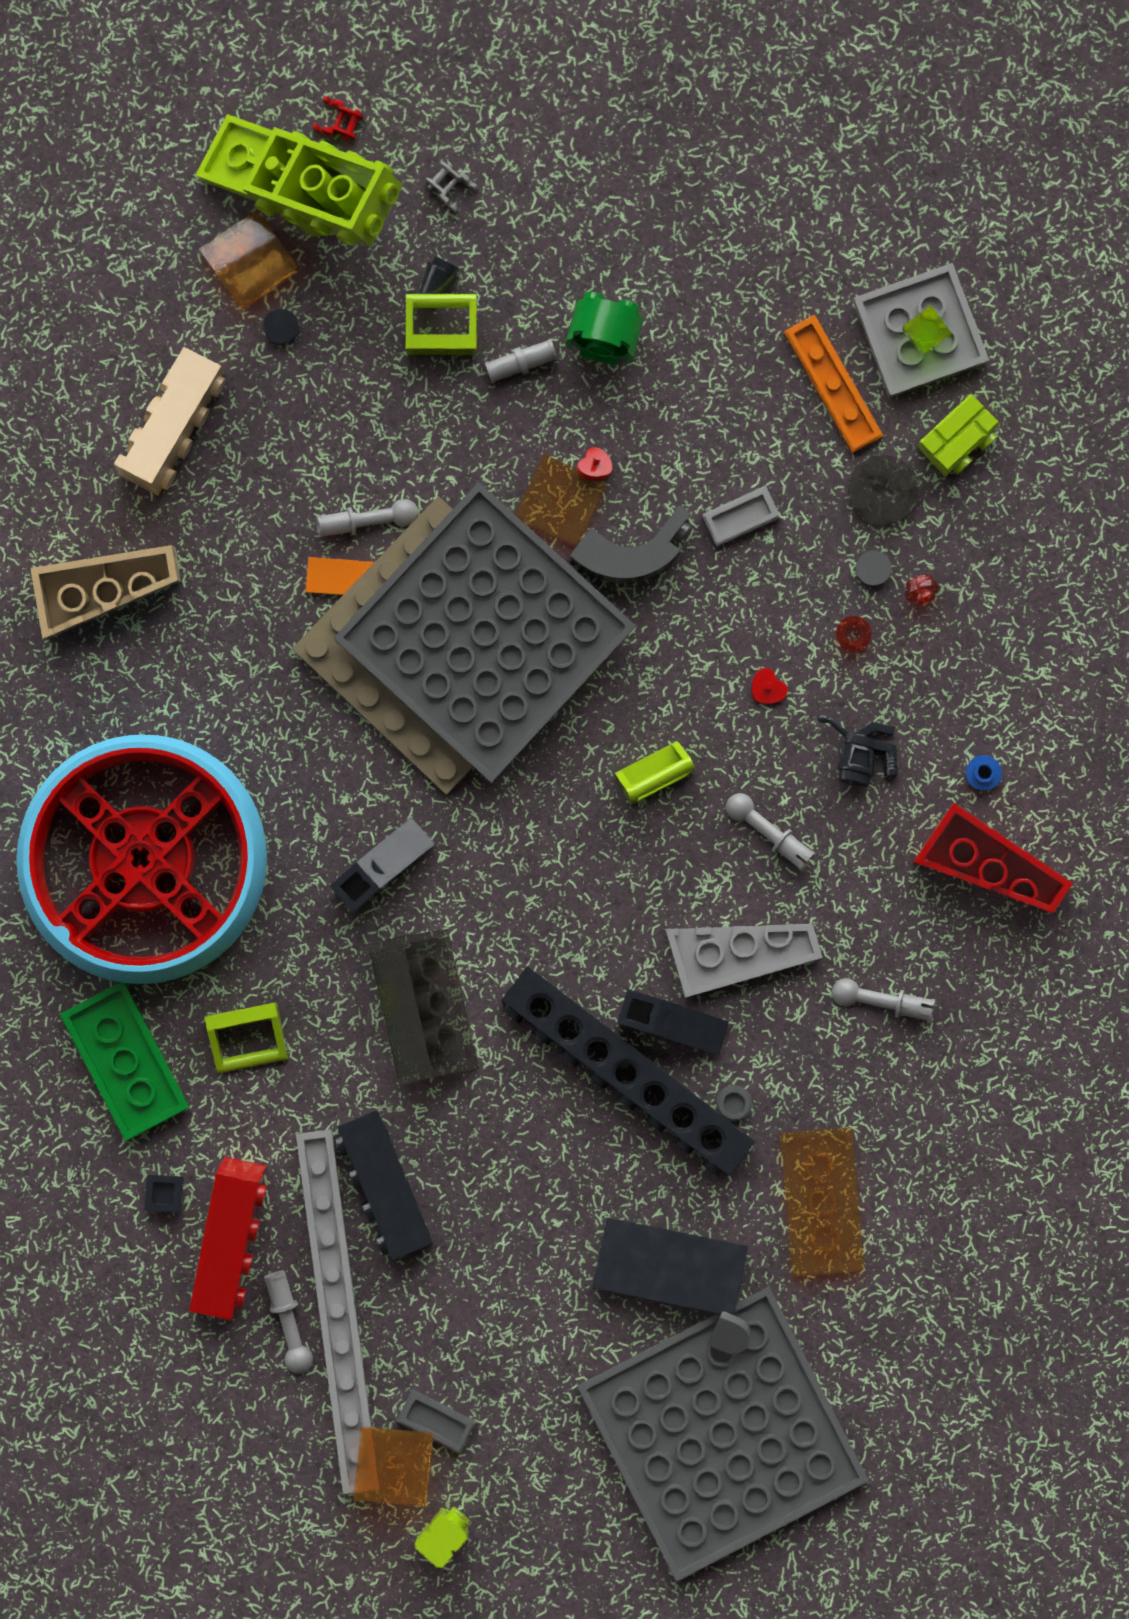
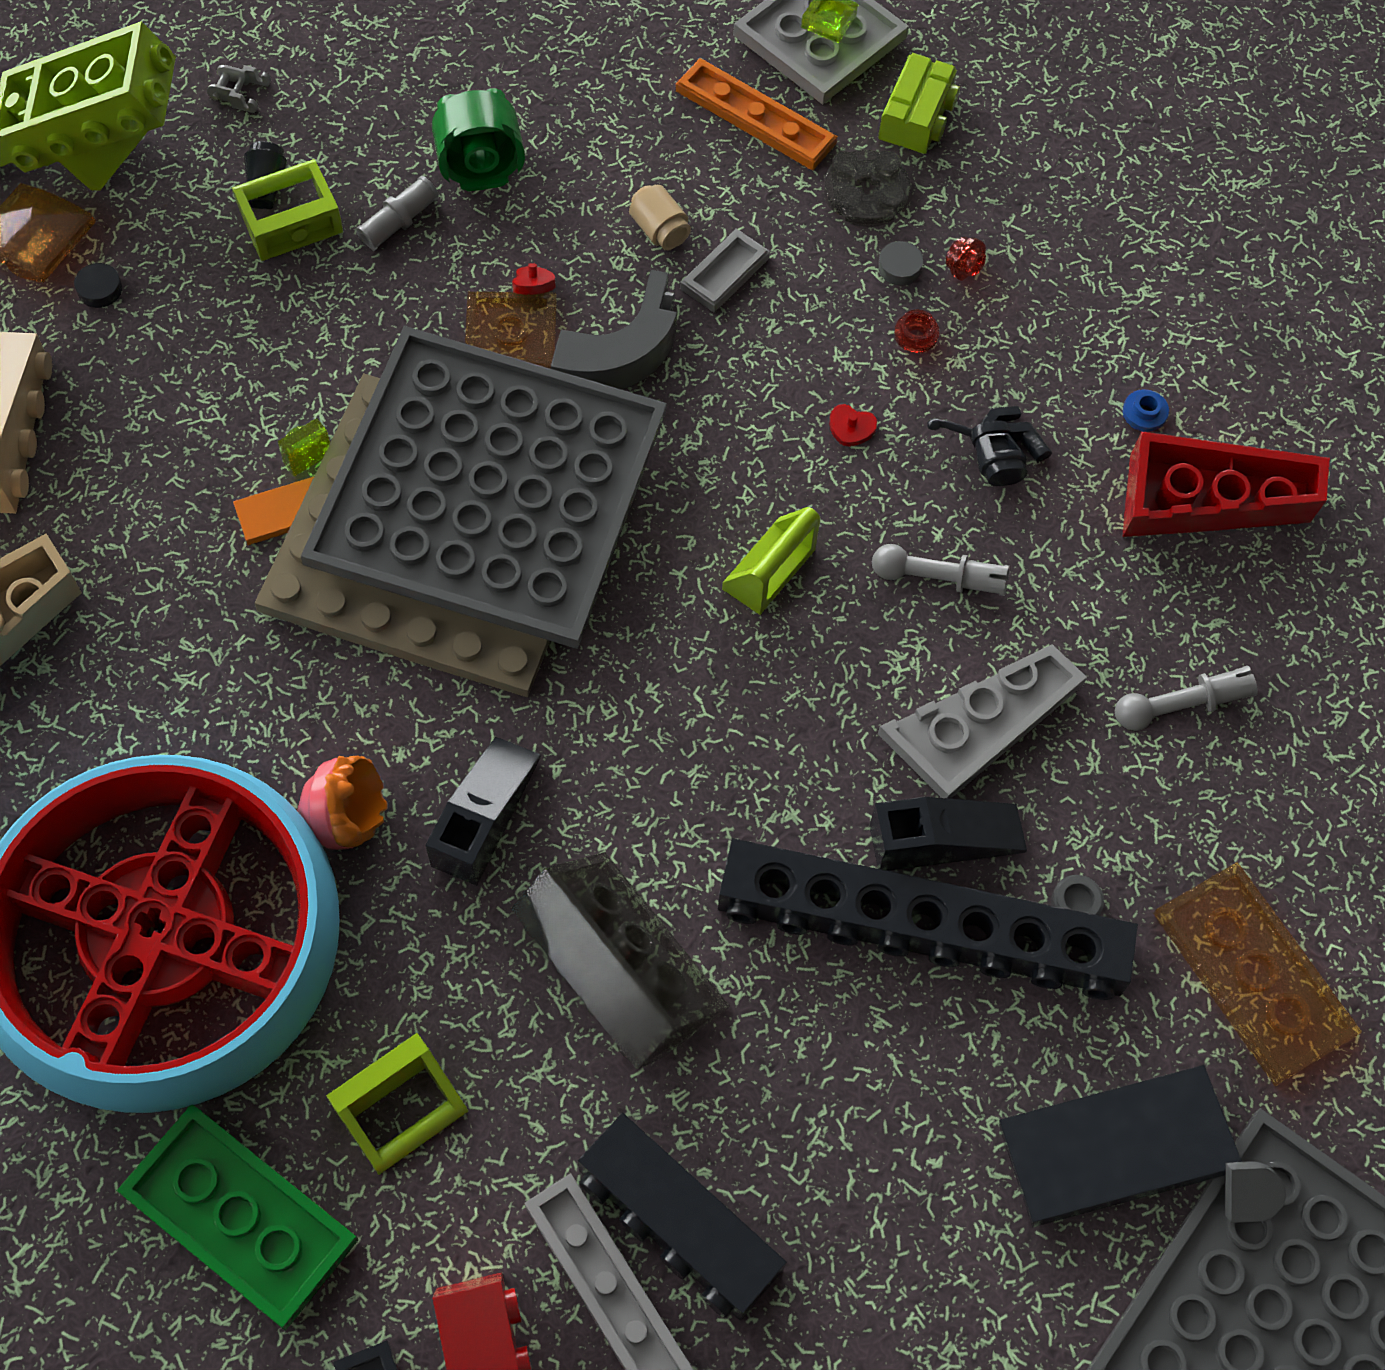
camera: 25 degrees left, 20 degrees down
(292, 824) = (343, 802): none -> orange hair
(373, 536) = (304, 446): none -> clear neon green plate
(401, 513) = (265, 445): light grey pin -> none
(712, 451) = (659, 216): none -> tan brick

